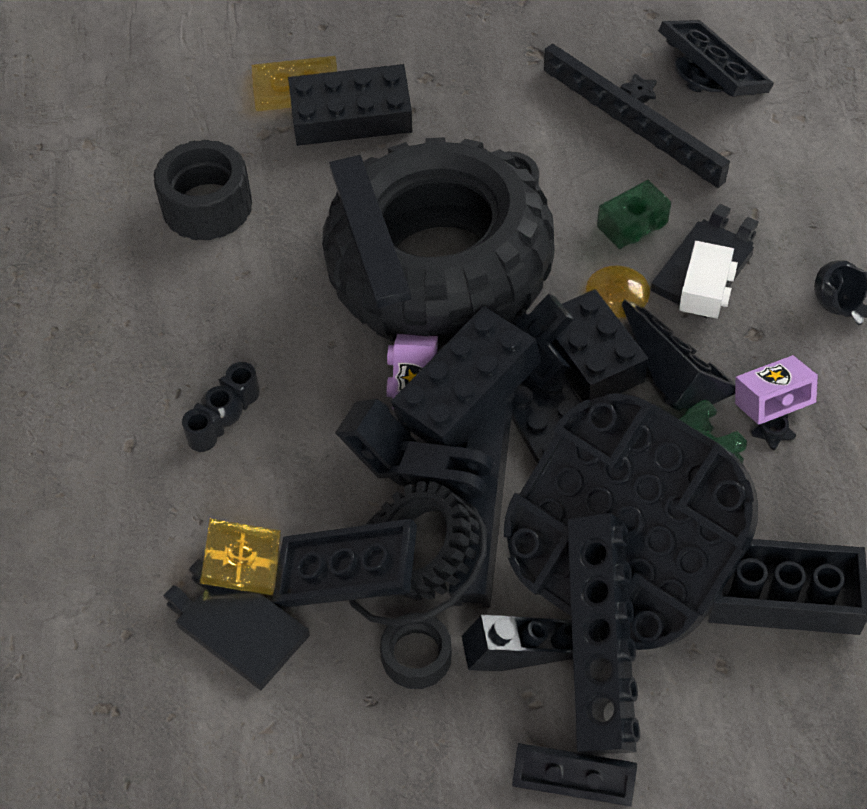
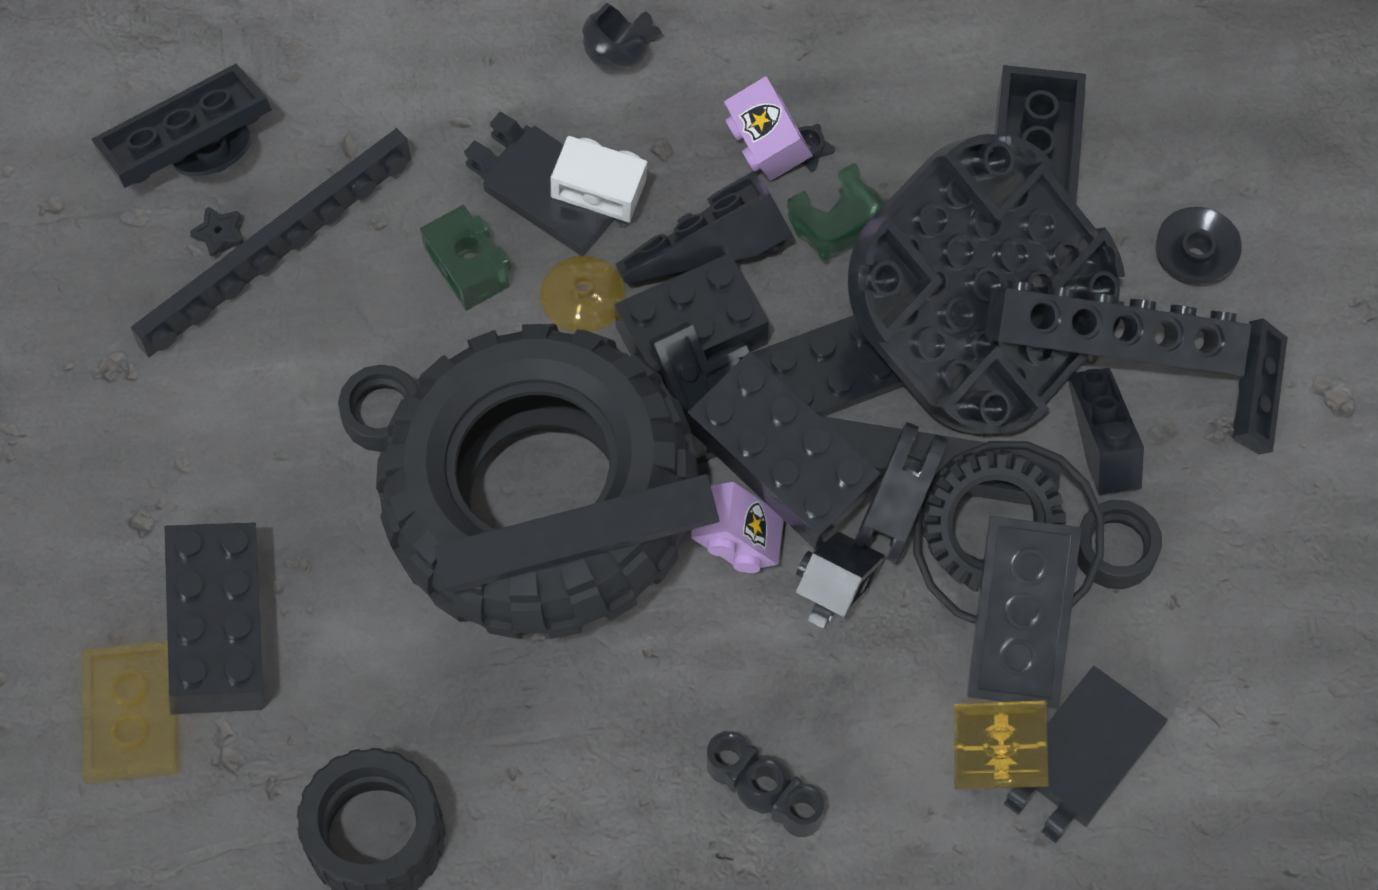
camera: 90 degrees left, 10 degrees up
(717, 709) = (1202, 230): none -> black dish

